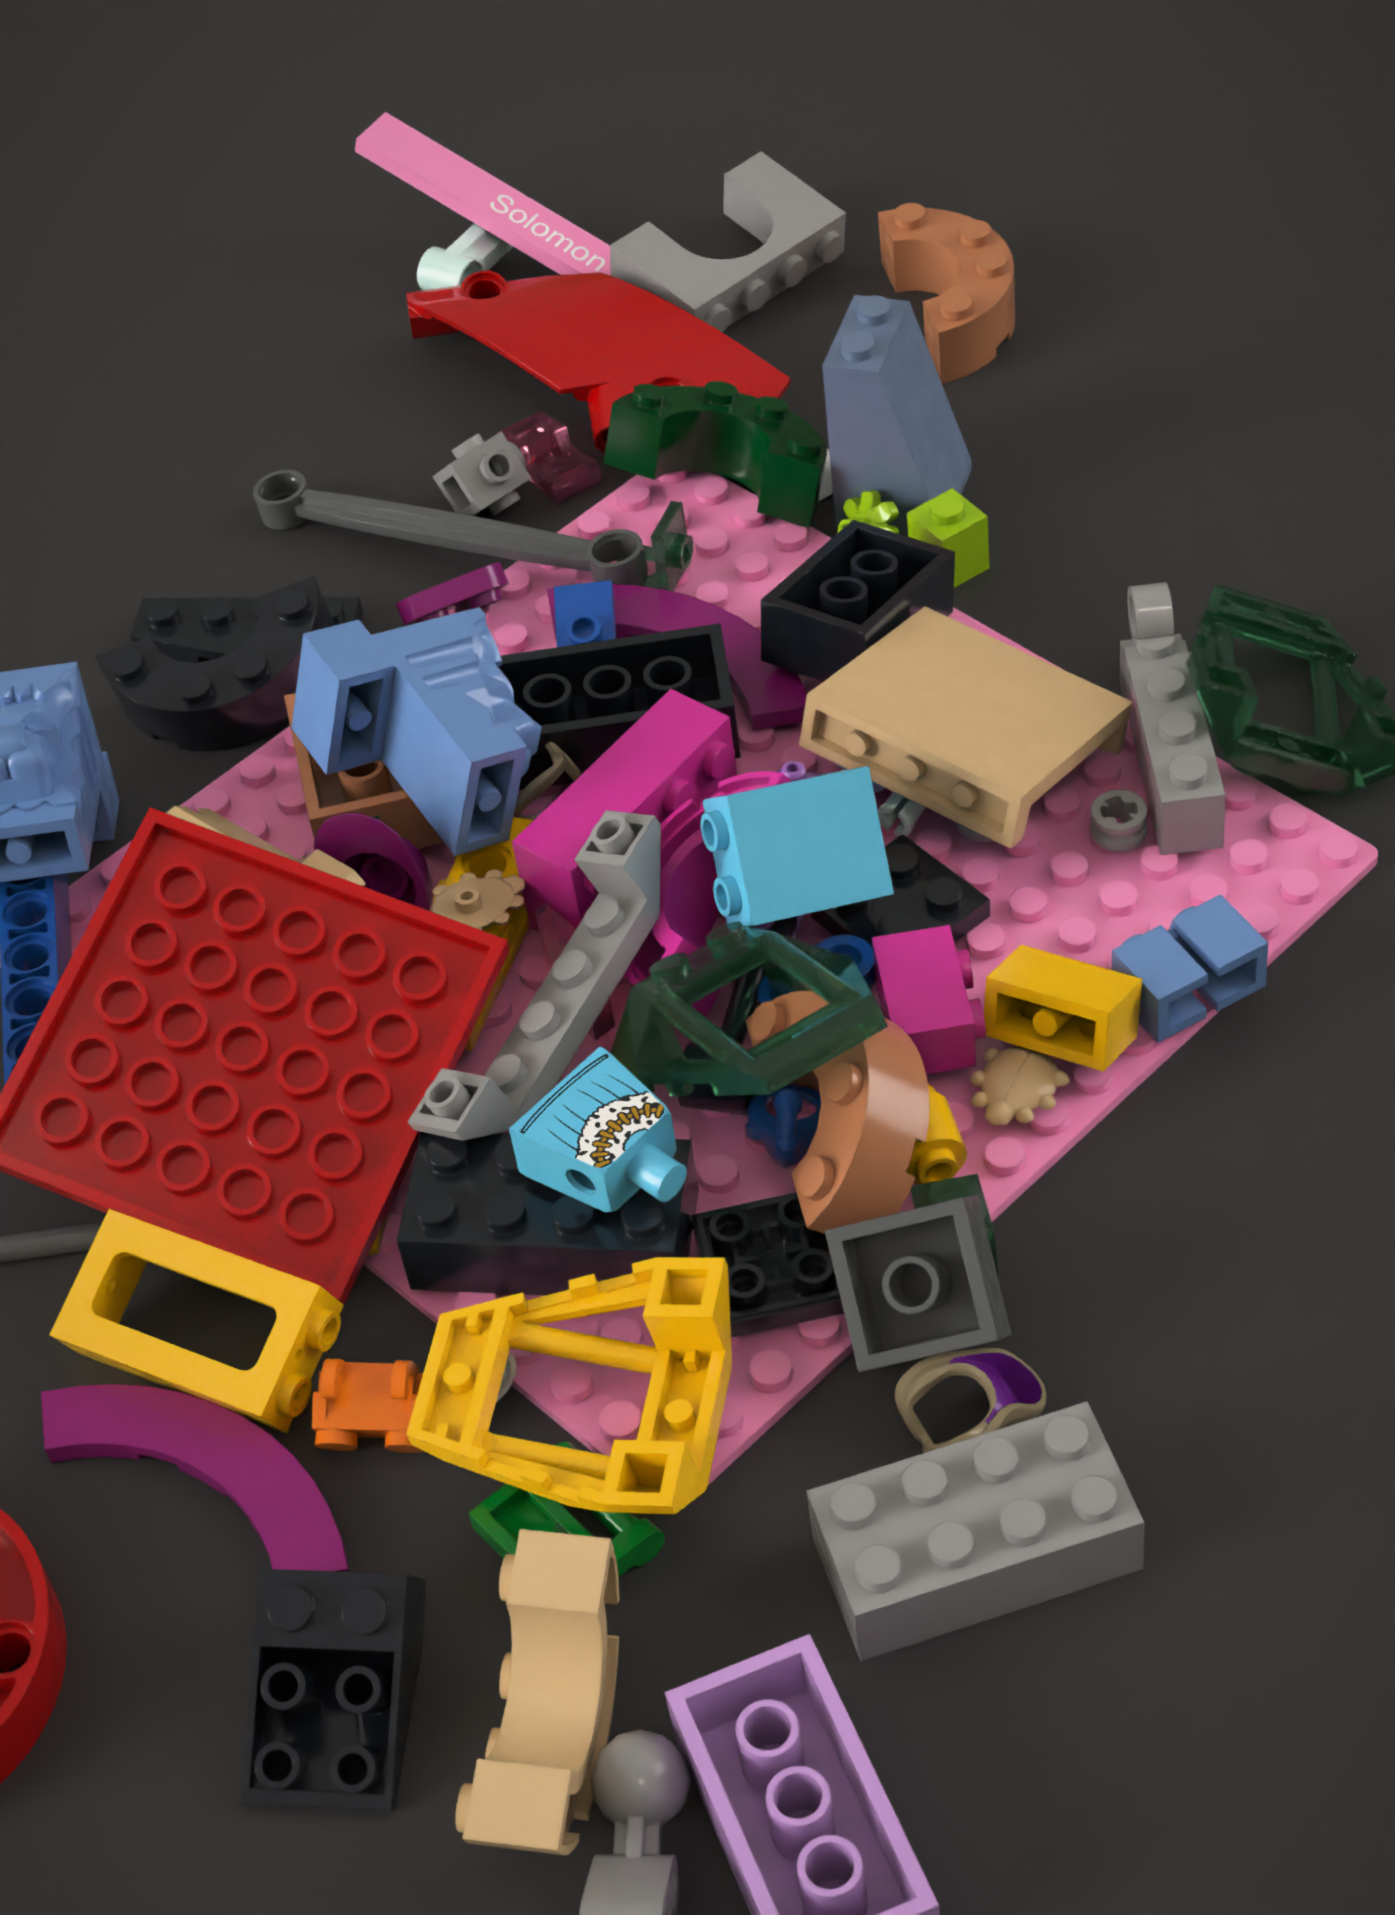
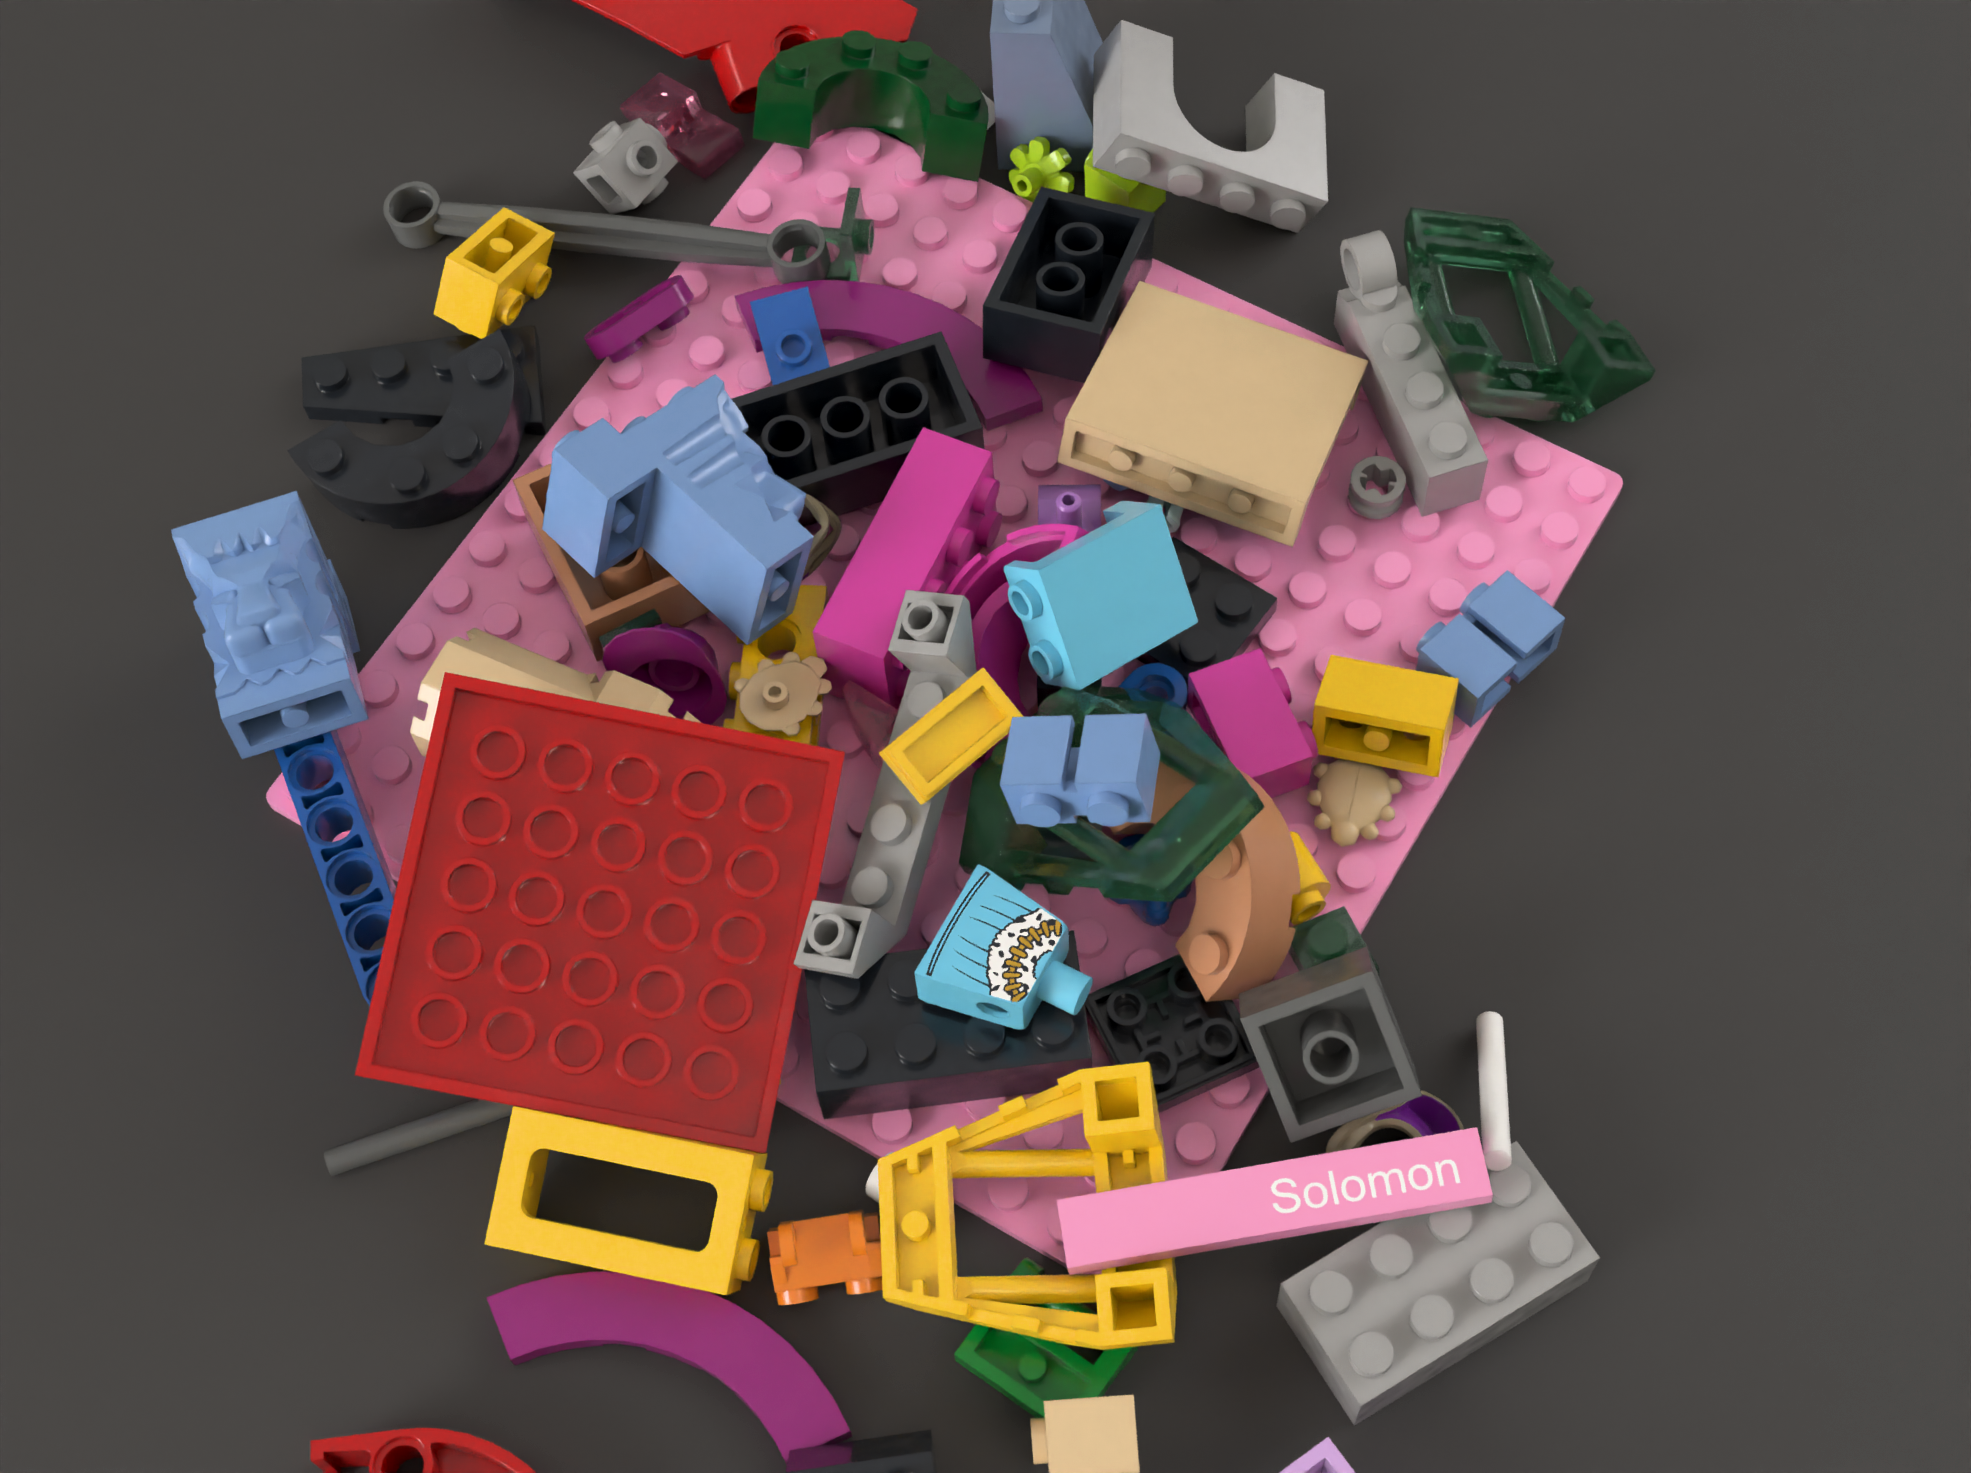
camera: 15 degrees left, 15 degrees up
(332, 540) = (494, 274): none -> yellow brick
(615, 944) = (951, 736): none -> yellow tile
(740, 980) = (1105, 778): none -> medium blue piece
(824, 1409) = (1274, 1201): none -> bright pink tile
(969, 493) = (1150, 140): none -> light grey arch
(1080, 1359) = (1493, 1091): none -> white bar

